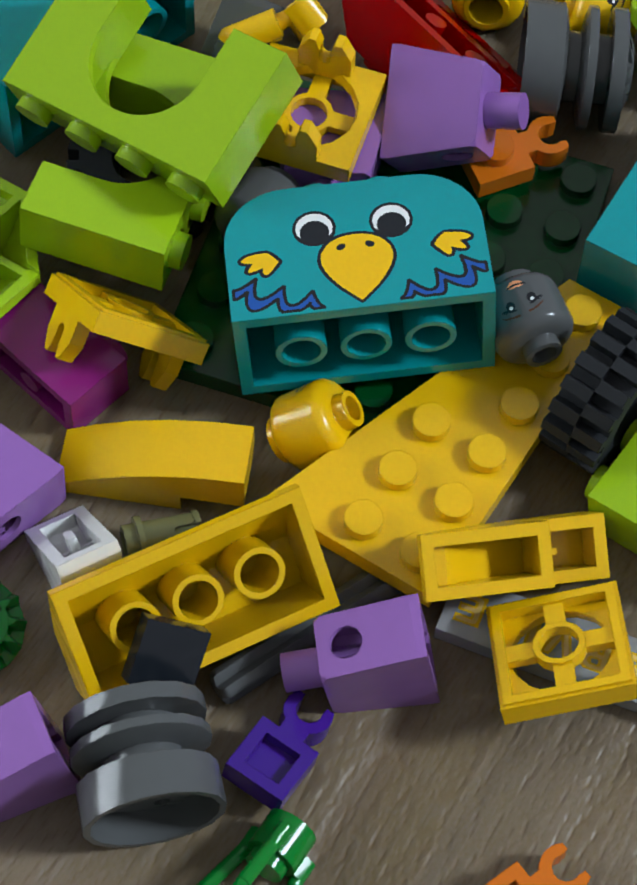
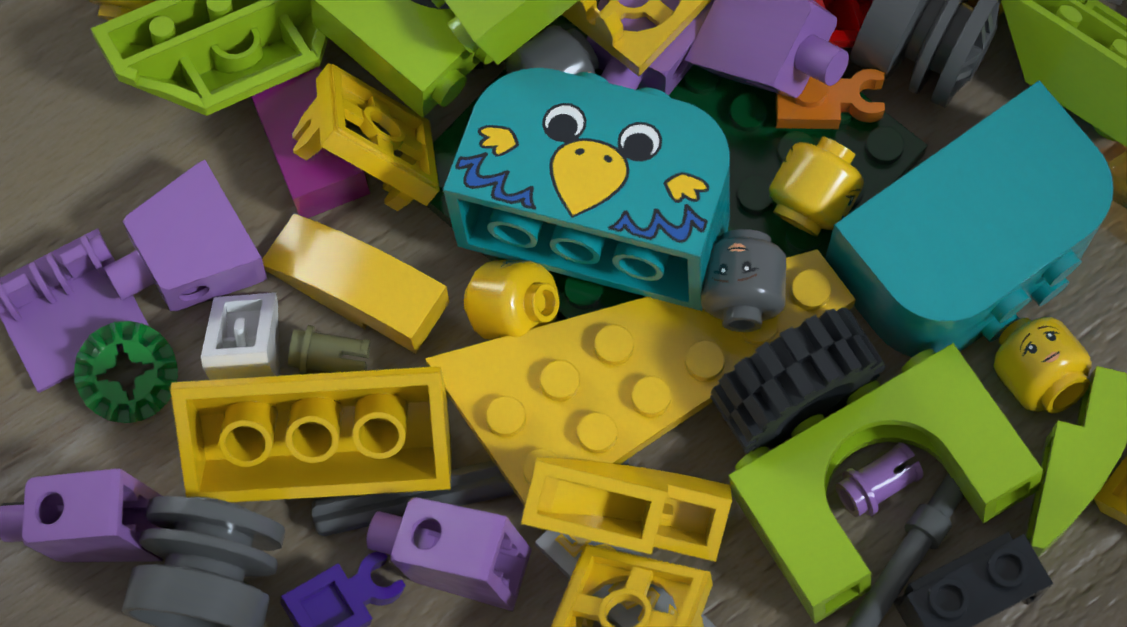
camera: 30 degrees right, 10 degrees up
(165, 650) = (263, 477): black tile -> none
(543, 226) = (816, 185): none -> yellow head

